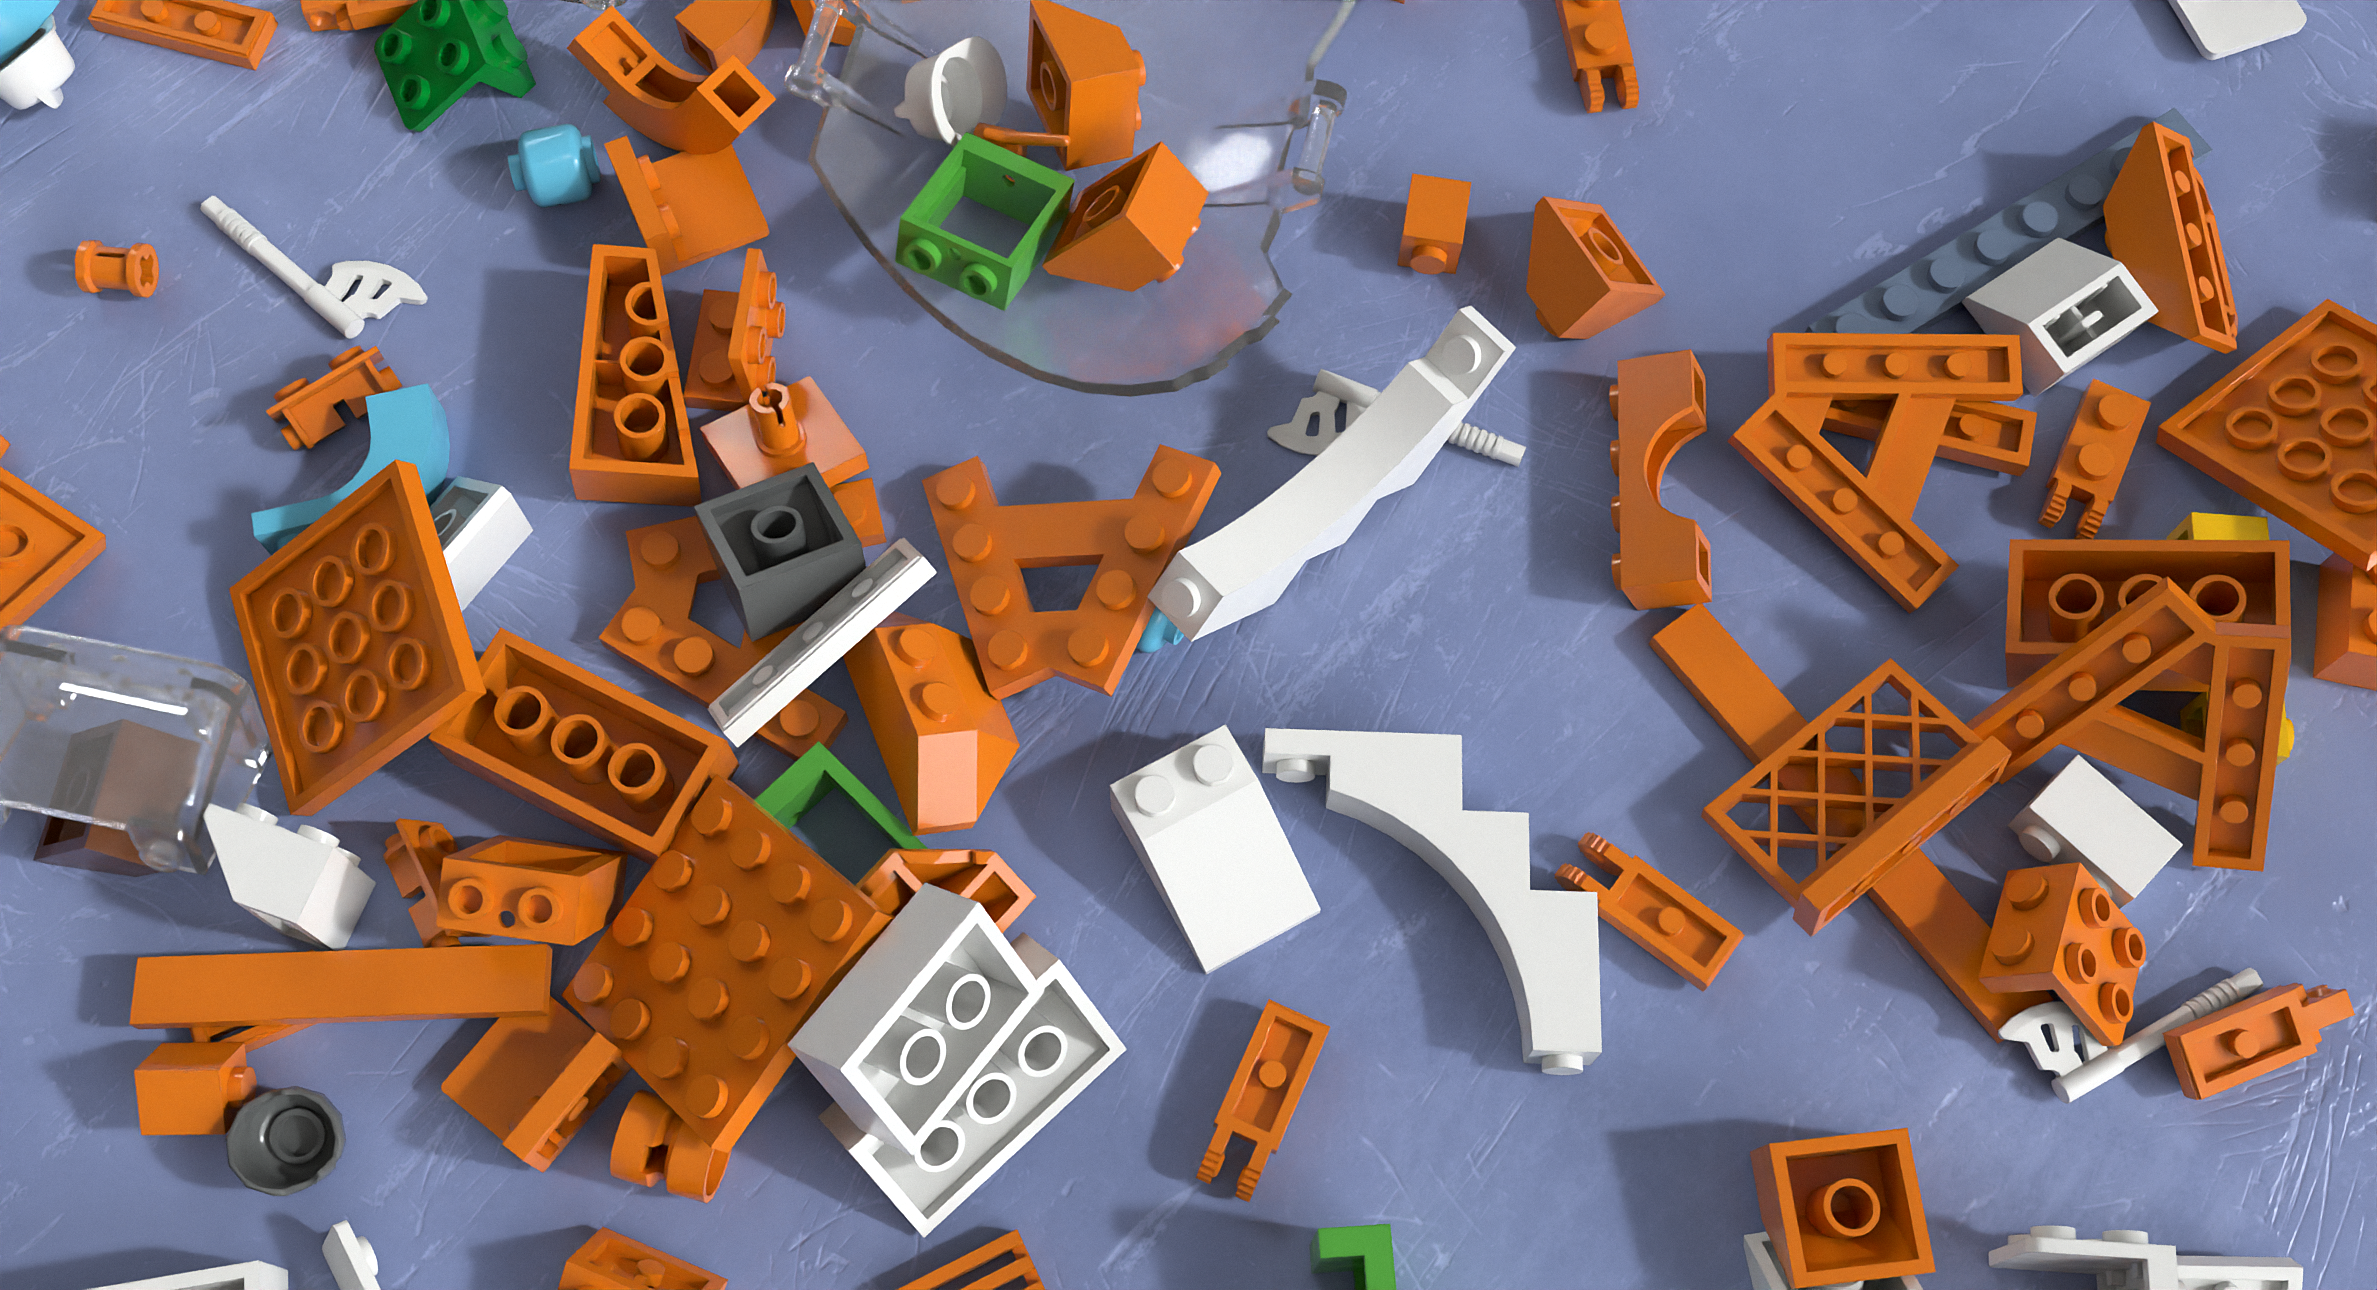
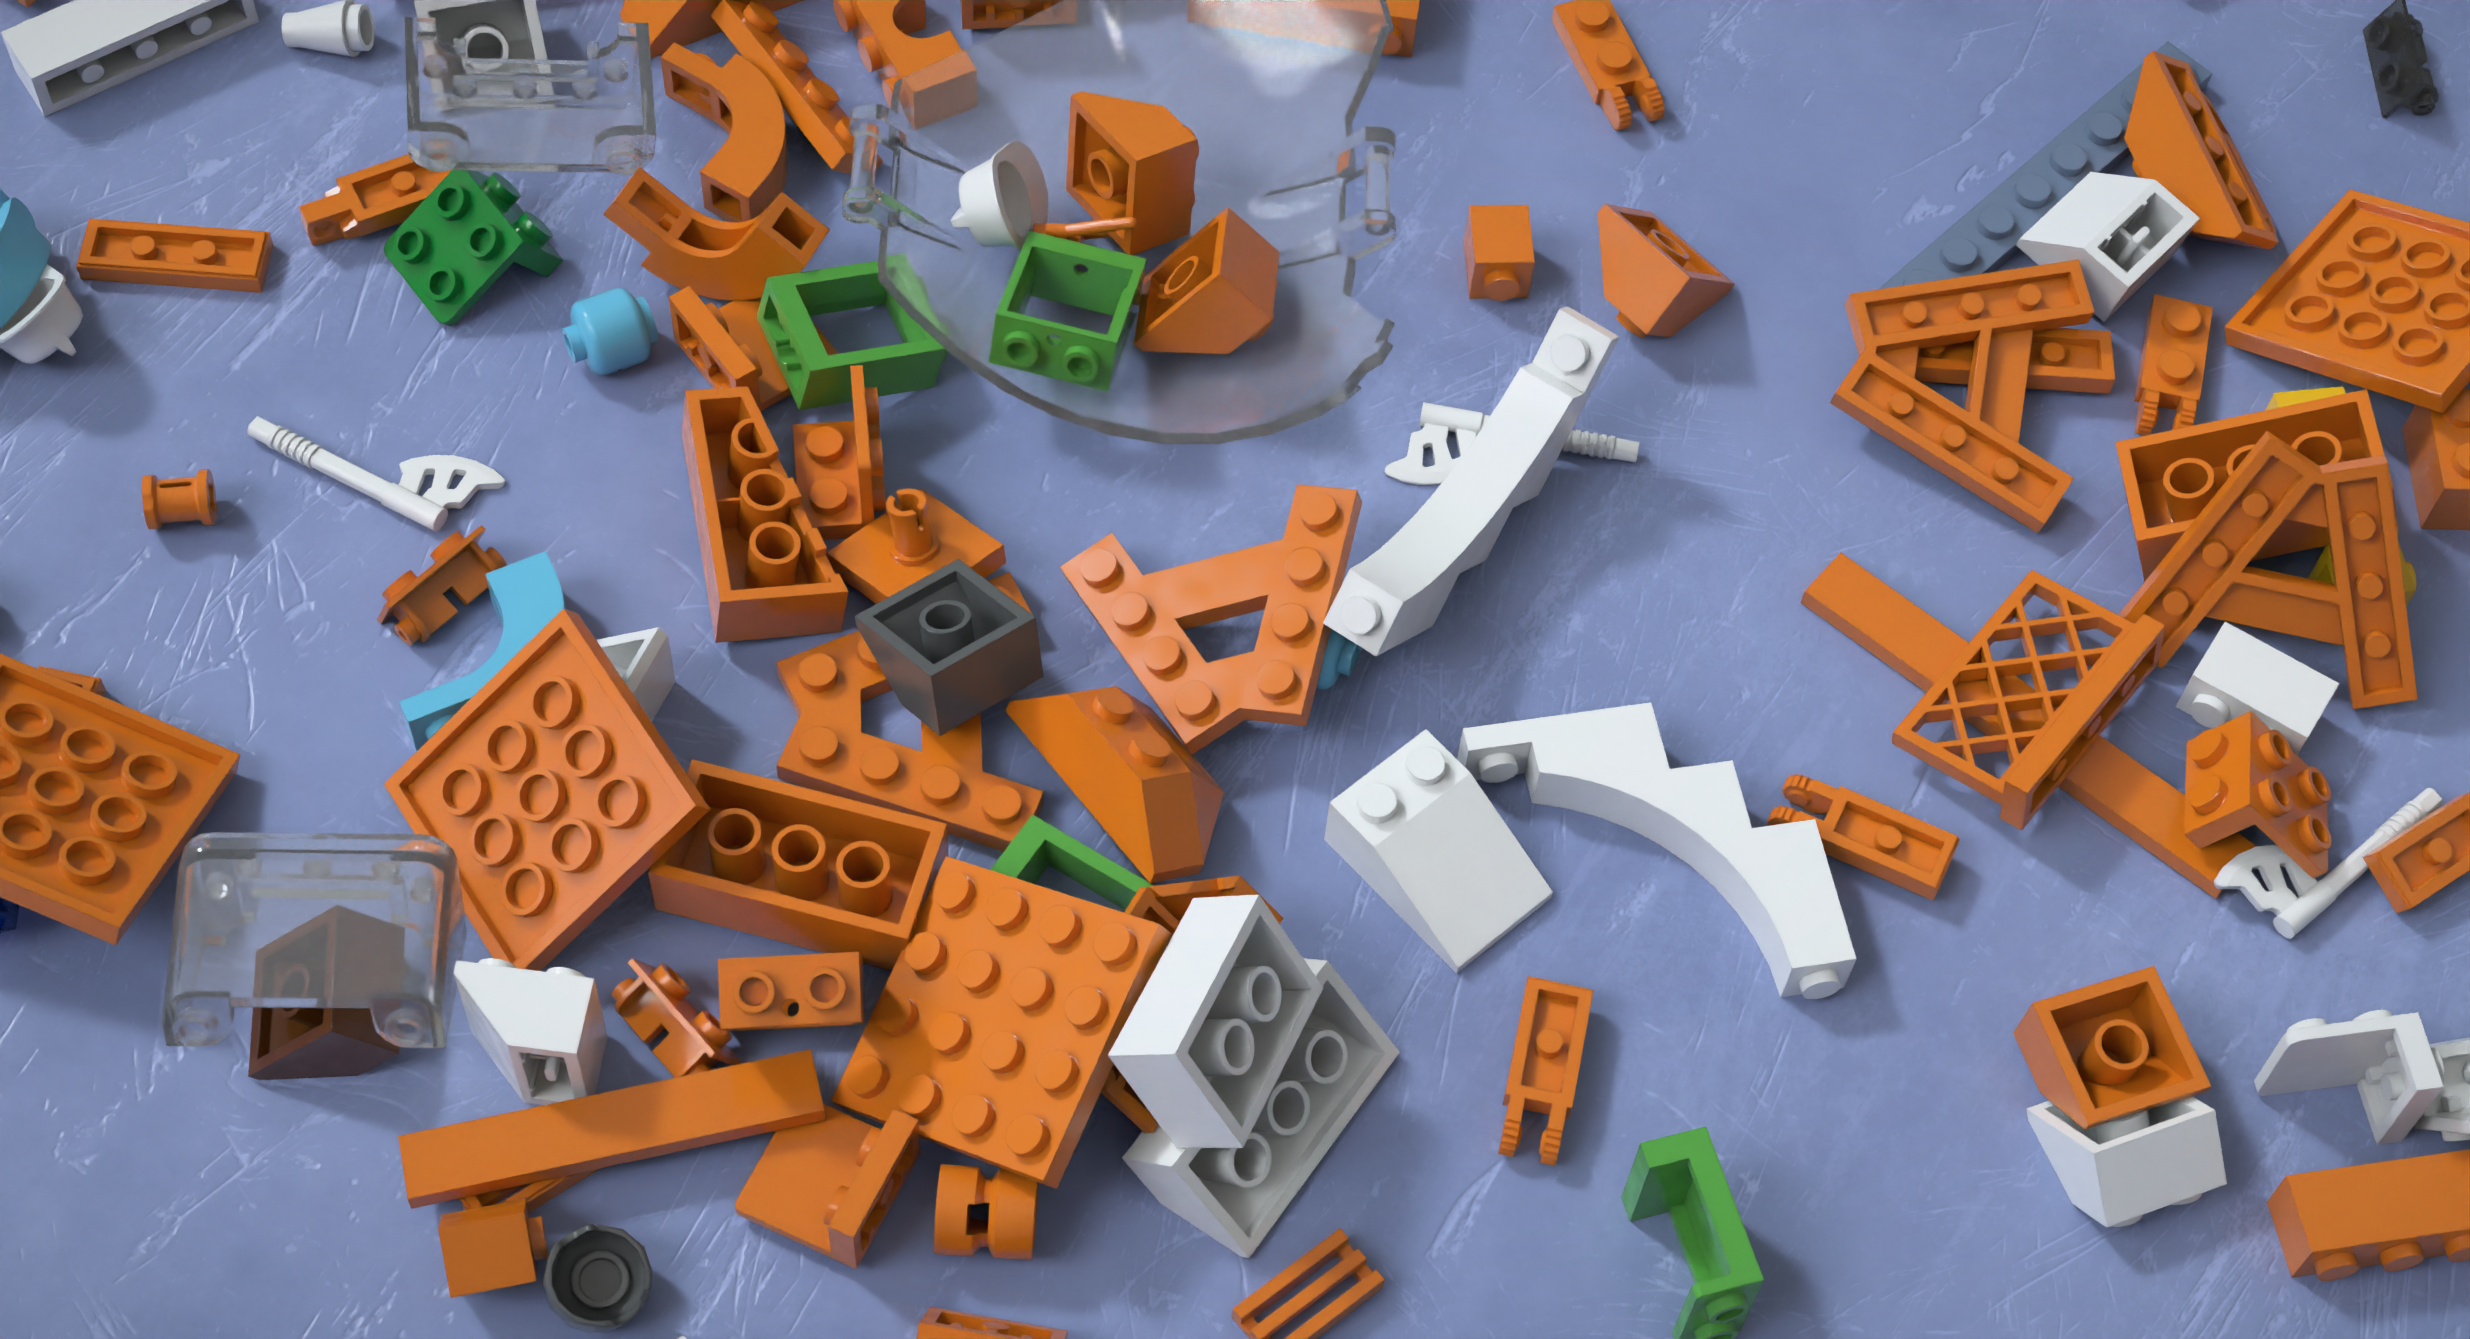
camera: 15 degrees left, 10 degrees down
(783, 249) = (824, 378): none -> bright green window
(820, 641) = (1013, 718): white tile -> none
(1657, 411) = (1794, 508): orange arch -> none

